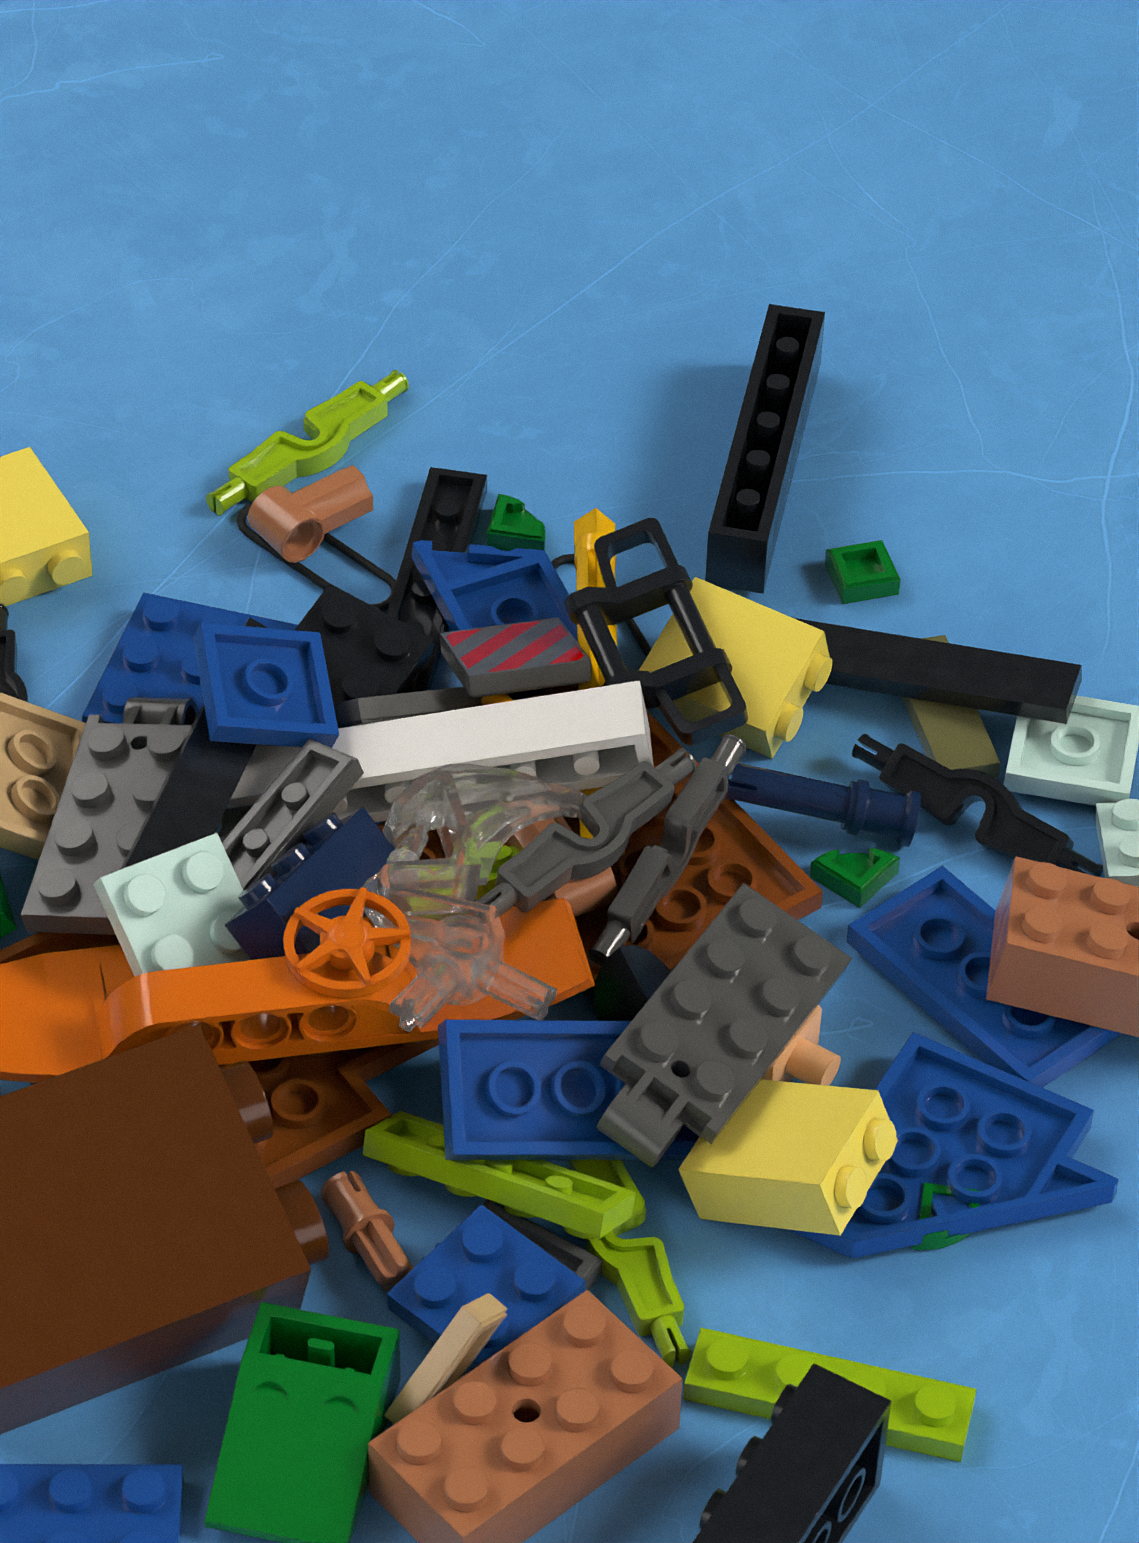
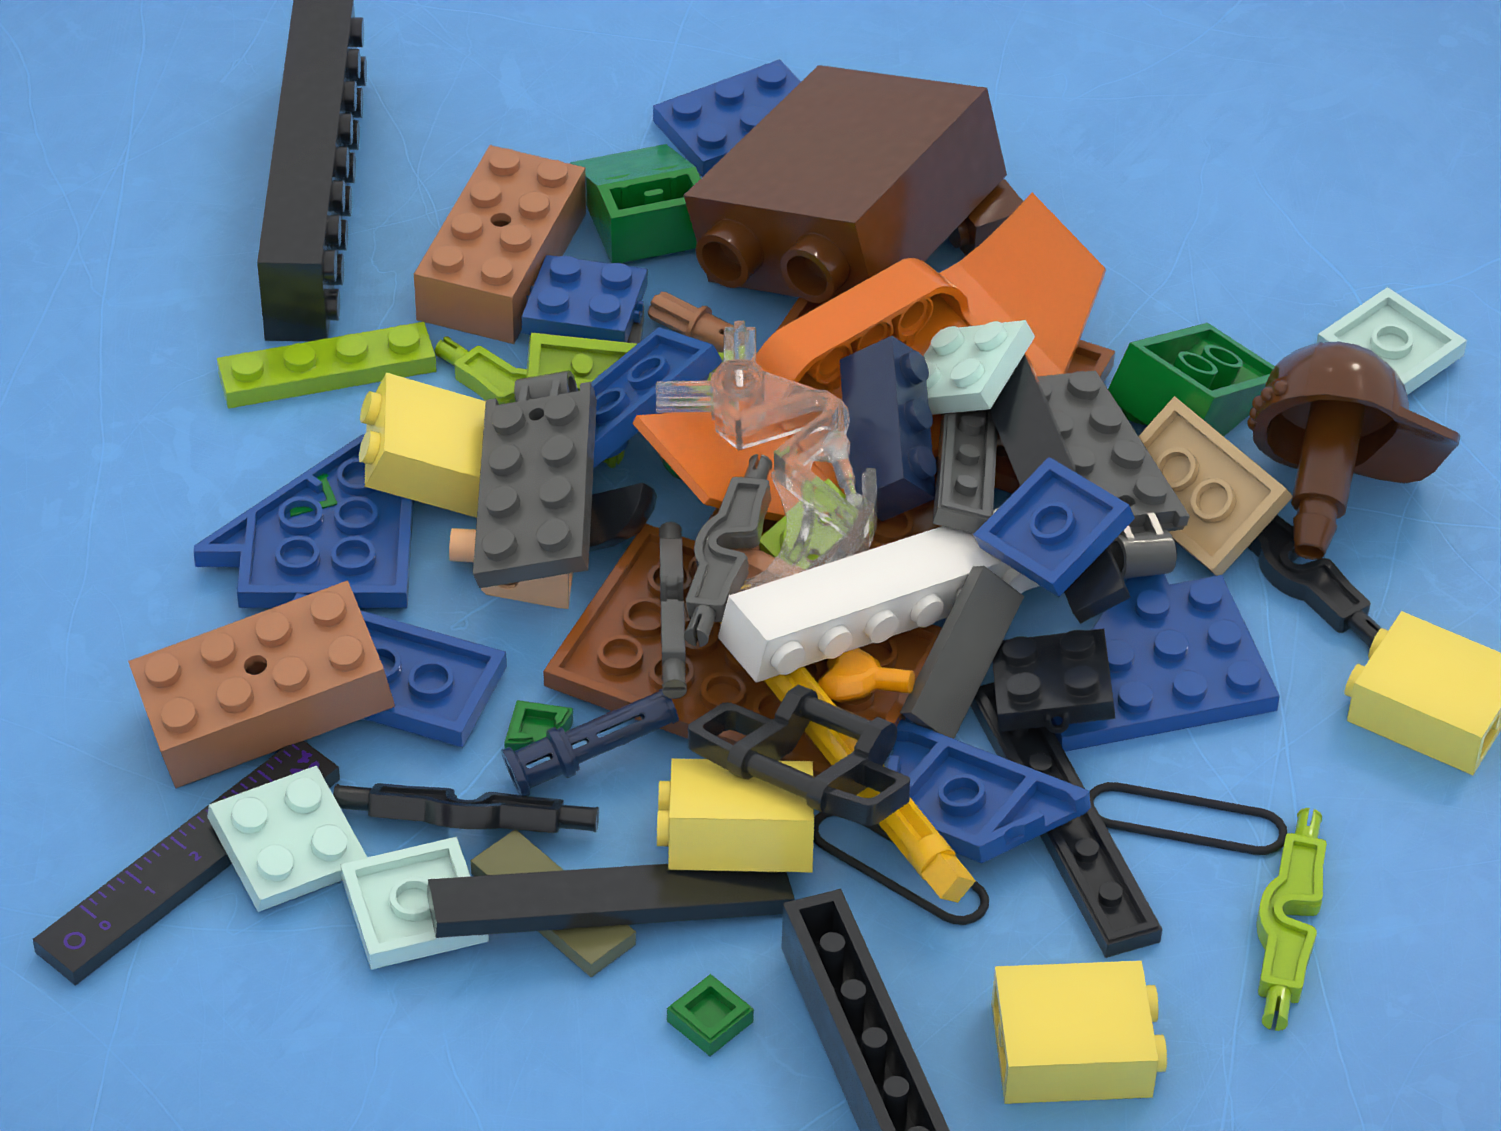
camera: 150 degrees right, 0 degrees up
(298, 520) = (1214, 809): nougat piece -> none
(347, 942) = (817, 347): orange wheel -> none
(450, 1355) = (572, 228): tan tile -> none
(514, 526) = (1043, 917): green tile -> none
(515, 657) = (927, 704): dark grey tile -> none
(575, 419) = (1076, 1032): none -> light yellow brick

